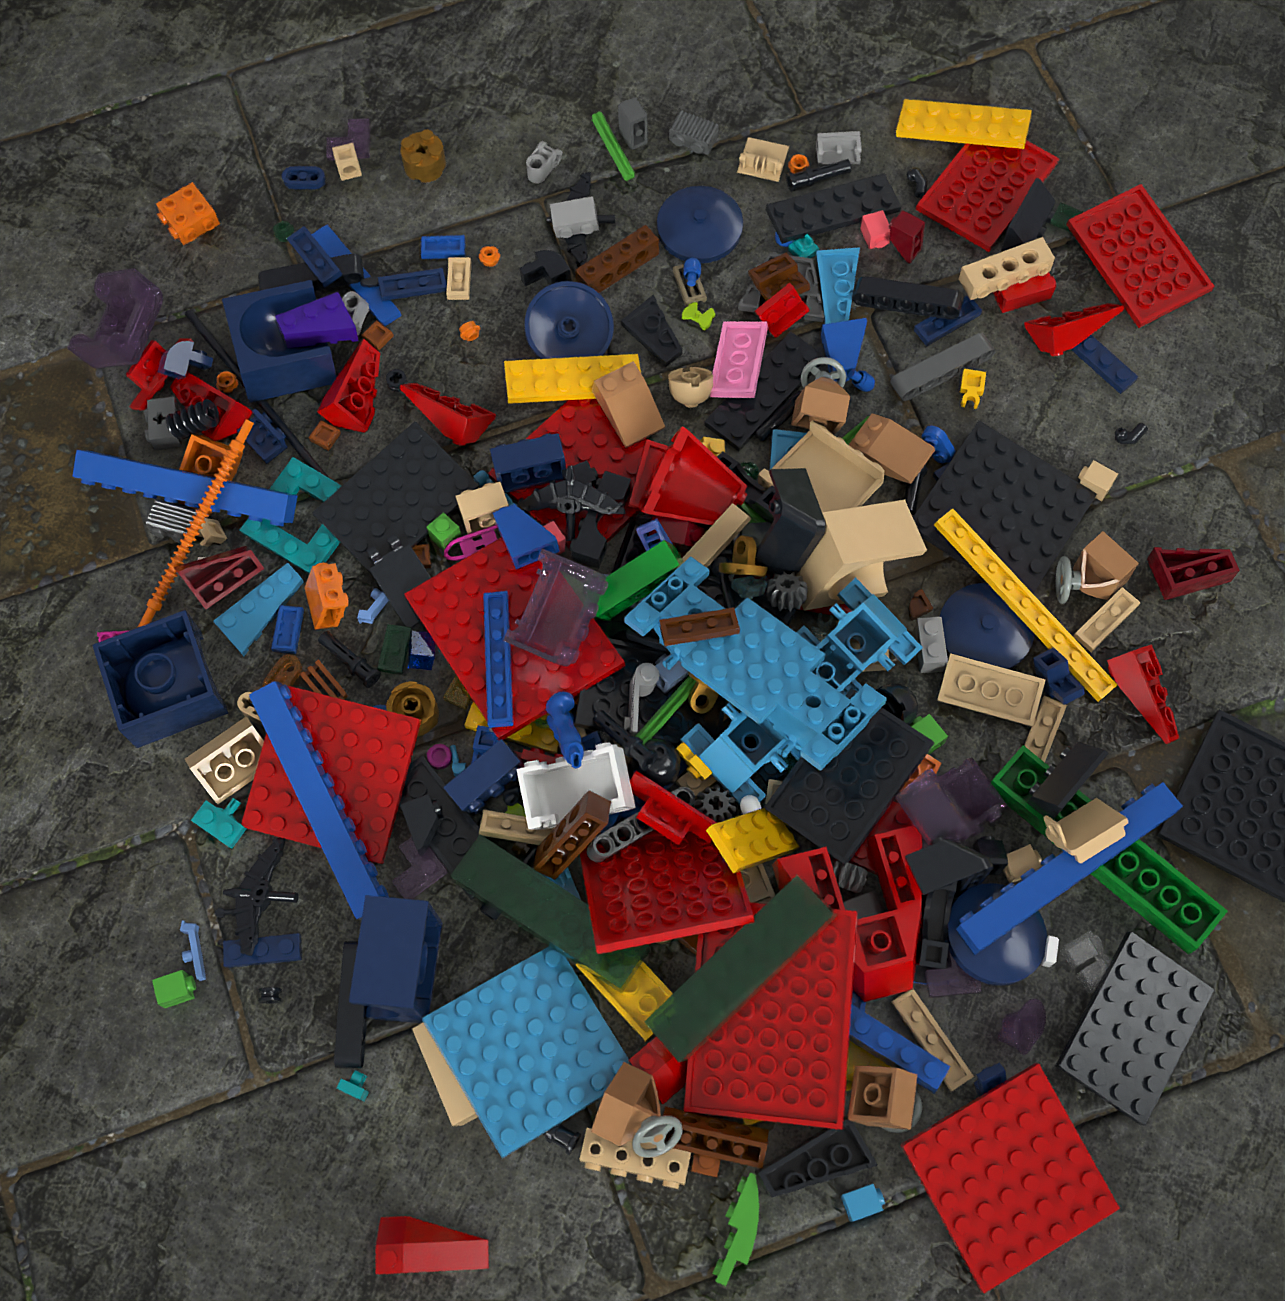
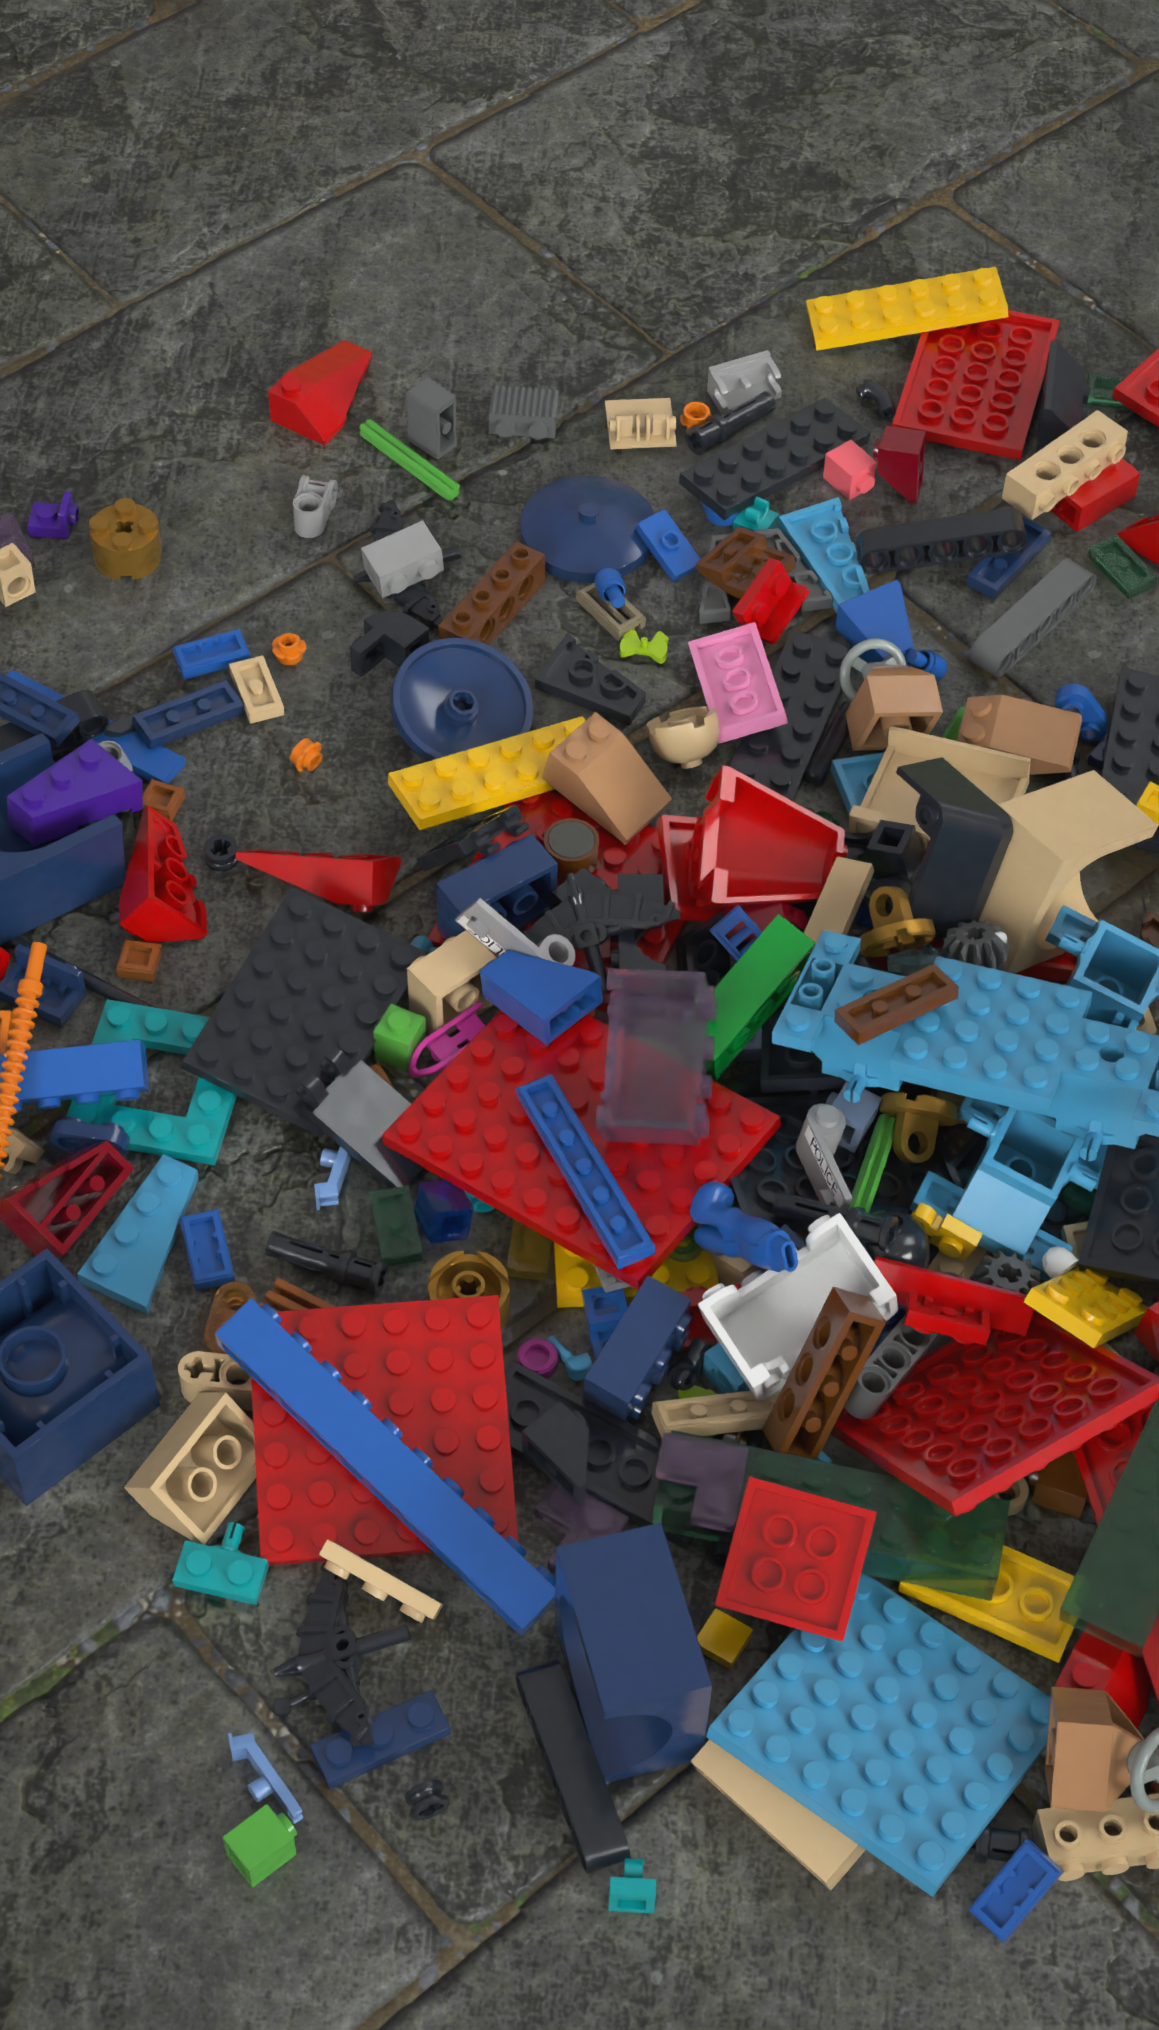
camera: 25 degrees left, 15 degrees down
(257, 545) = (75, 1134): none -> dark blue plate
(294, 862) = (379, 1582): none -> tan plate
(325, 595) = (255, 1176): orange brick -> none
(390, 128) = (53, 519): none -> dark purple bracket
(467, 959) = (723, 1638): none -> yellow tile
(489, 872) = (714, 1469): none -> clear purple plate
(511, 937) = (795, 1559): none -> red plate
(532, 419) = (475, 837): none -> black tile
(540, 512) = (501, 935): none -> light grey door
(556, 1167) = (1016, 1890): none -> blue plate
(577, 84) = (319, 392): none -> red wedge
(589, 443) = (572, 845): none -> piece
(740, 250) = (668, 545): none -> blue plate
(972, 385) = (1088, 630): yellow plate -> none
(1016, 347) = (1122, 566): none -> clear green plate

